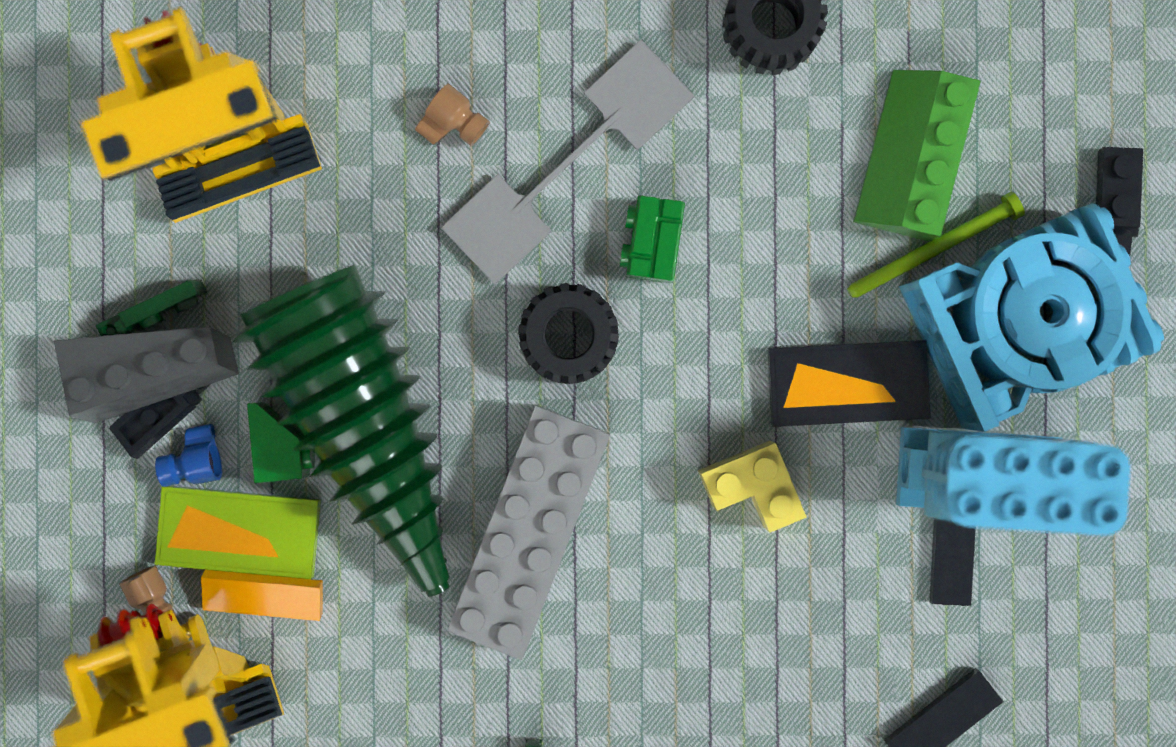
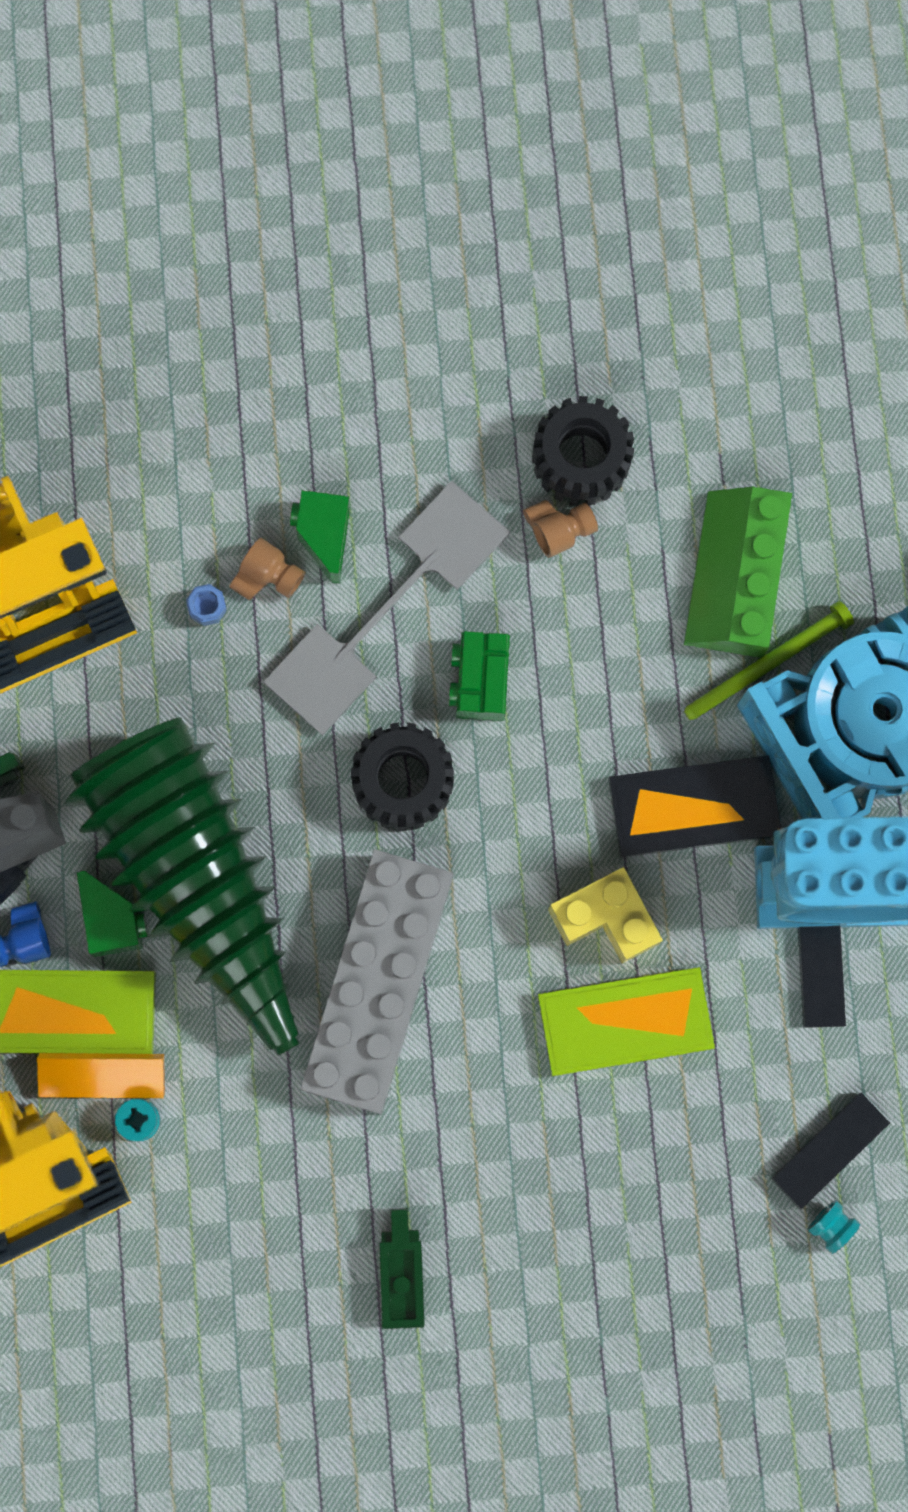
camera: 10 degrees left, 10 degrees down
(302, 637) = (144, 1120): none -> teal wheel
(390, 146) = (206, 605): none -> medium blue tile
(510, 78) = (322, 529): none -> green slope
(741, 99) = (559, 531): none -> medium nougat piece
(762, 584) = (626, 1021): none -> lime tile

